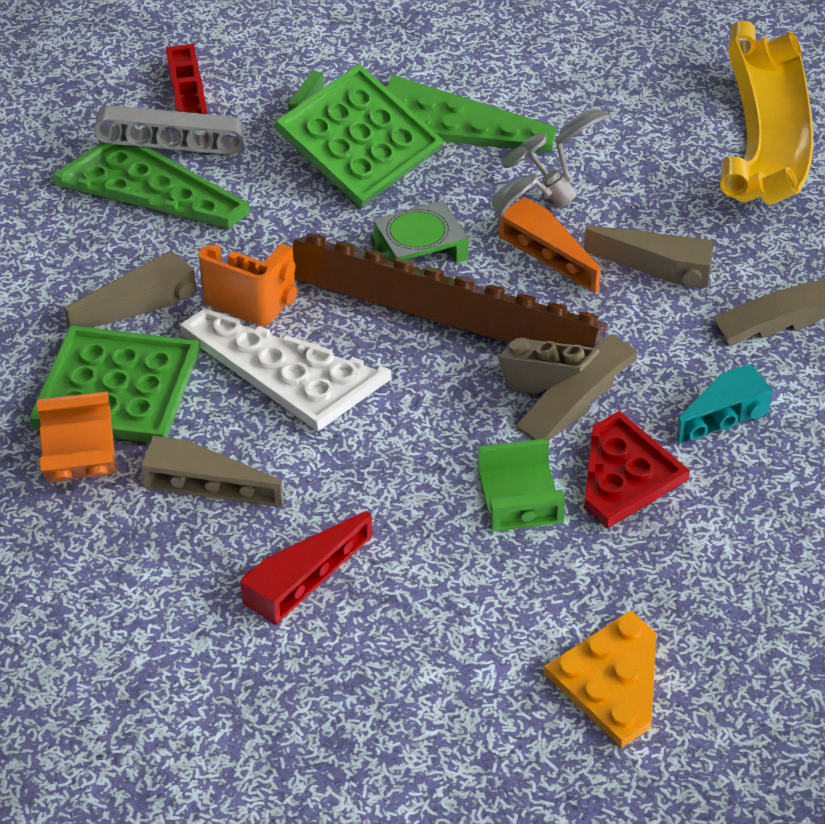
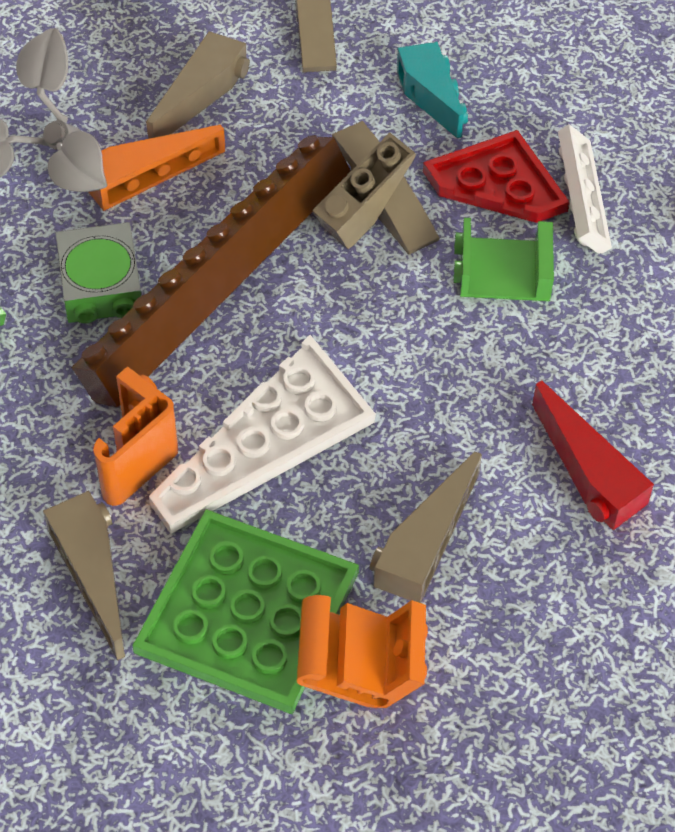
camera: 80 degrees left, 10 degrees up
(633, 530) = (584, 190): none -> white plate

